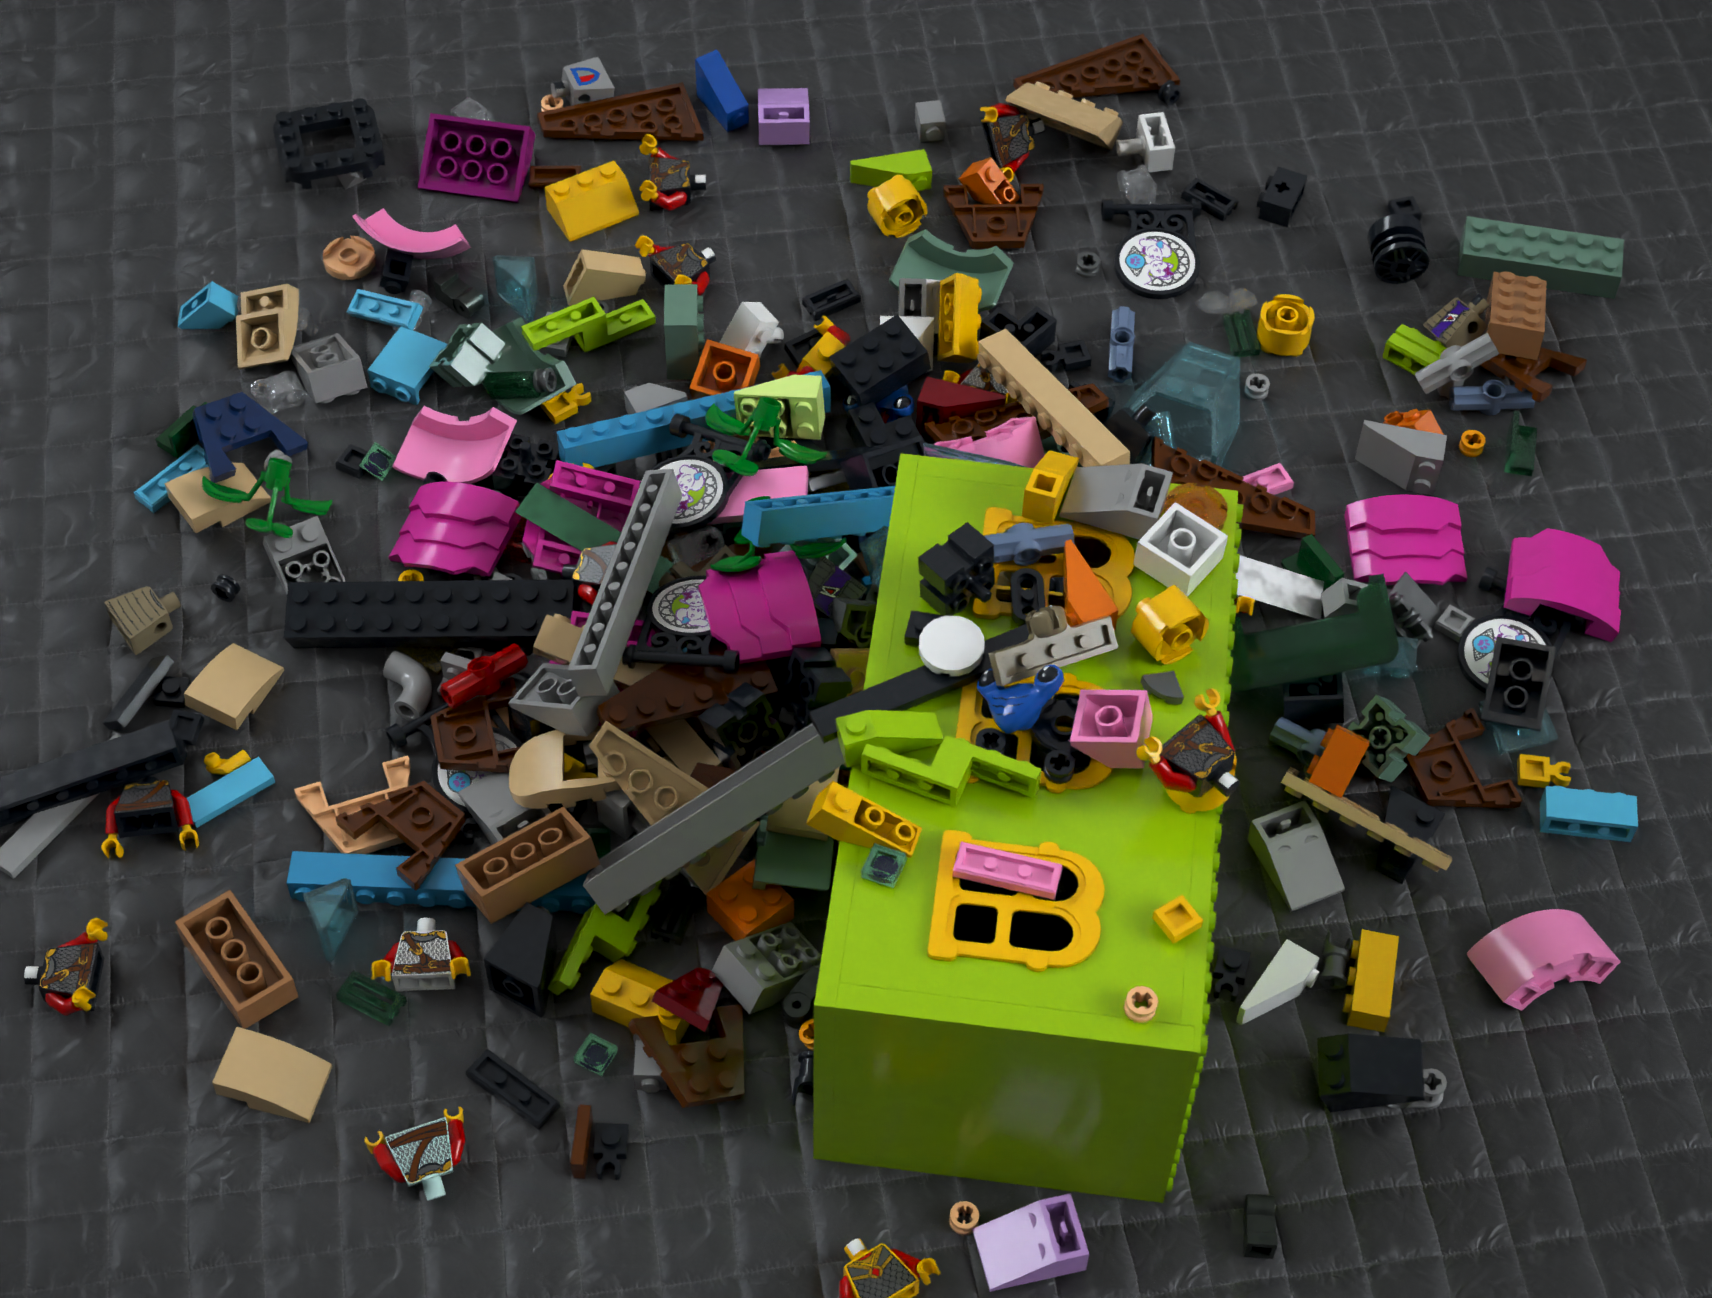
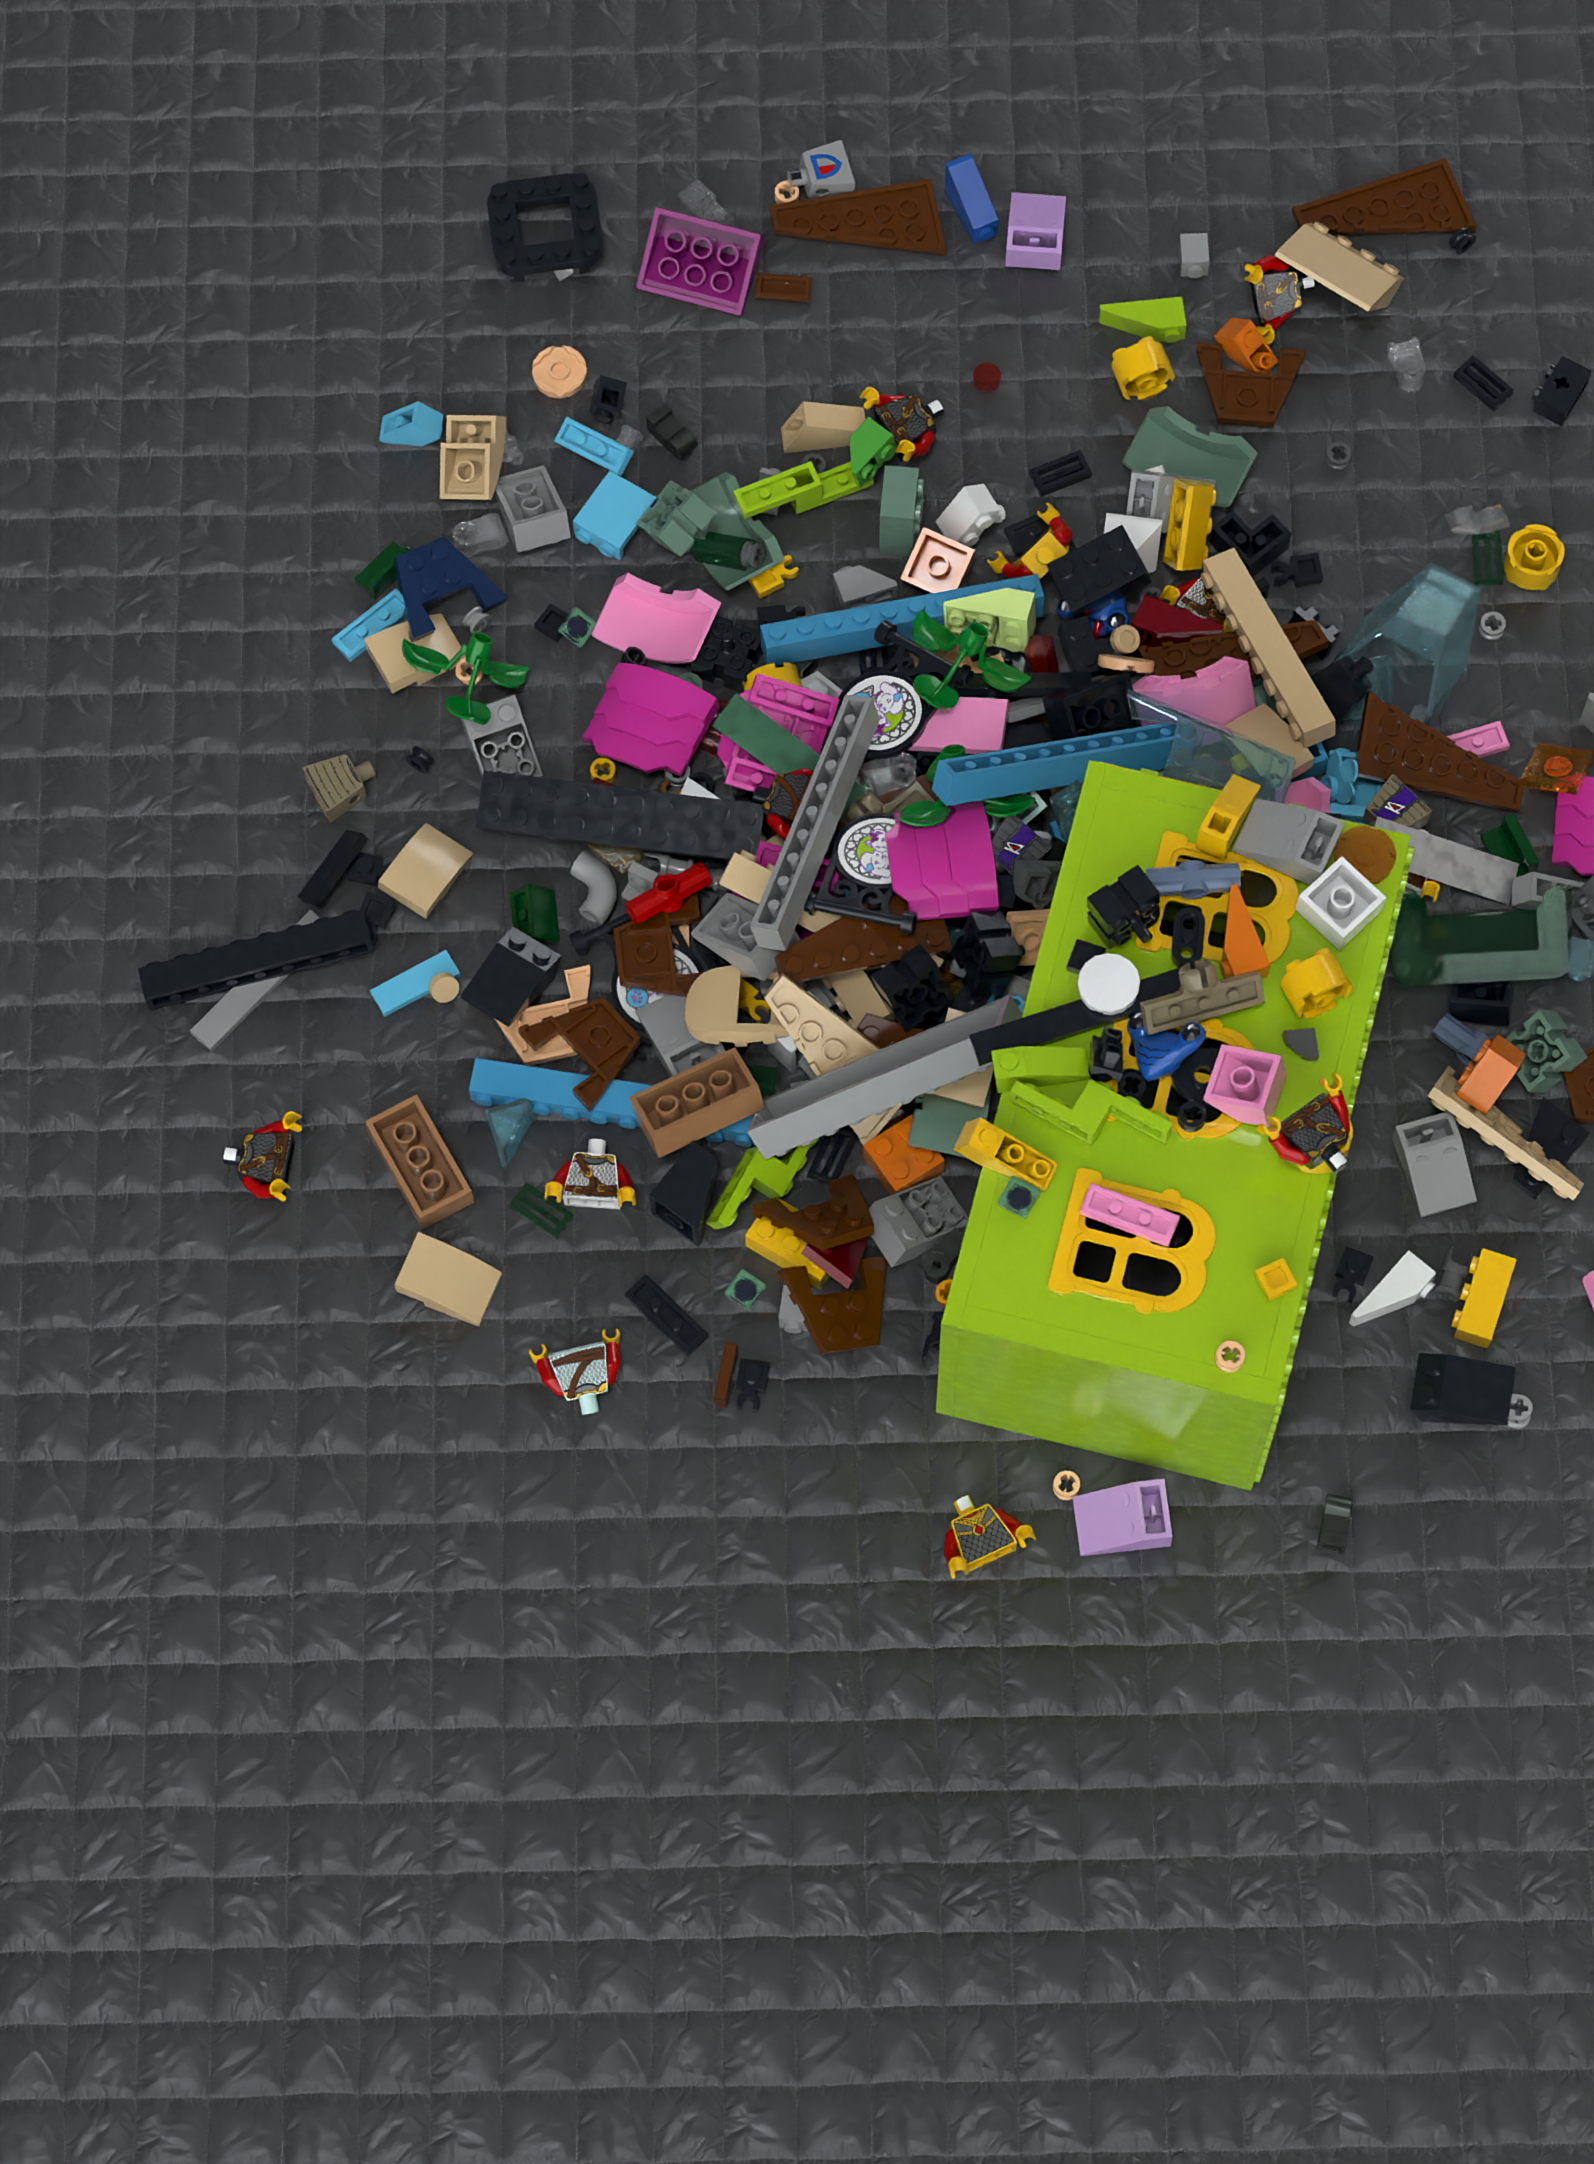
camera: 10 degrees right, 15 degrees up
(147, 810) = (340, 998): torso -> none
(220, 766) = (412, 955): yellow arm -> none
(257, 791) = (443, 987): none -> tan tile
(280, 508) = (463, 676): none -> light nougat bush
(327, 770) = (512, 976): none -> black slope
(348, 717) = (535, 912): none -> dark green panel
(419, 244) = (622, 366): bright pink panel -> none
(517, 283) = (734, 429): clear light blue slope -> none
(591, 201) = (819, 326): yellow slope -> none
(647, 287) = (869, 449): none -> bright green slope
(669, 178) = (903, 306): torso -> none
(686, 967) = (824, 1224): none -> reddish brown wing
(752, 230) = (986, 377): none -> clear red tile
(833, 435) = (1041, 654): none -> clear red slope
(912, 416) = (1125, 639): none -> tan tile
(930, 432) = (1123, 663): none -> light nougat tile
(960, 713) = (1106, 1056): none -> black hips
(1121, 344) = (1361, 548): sand blue piece -> none
(1151, 142) = (1430, 310): white brick -> none
(1155, 259) = (1414, 456): piece -> none
(1344, 494) = (1557, 768): none -> clear orange tile

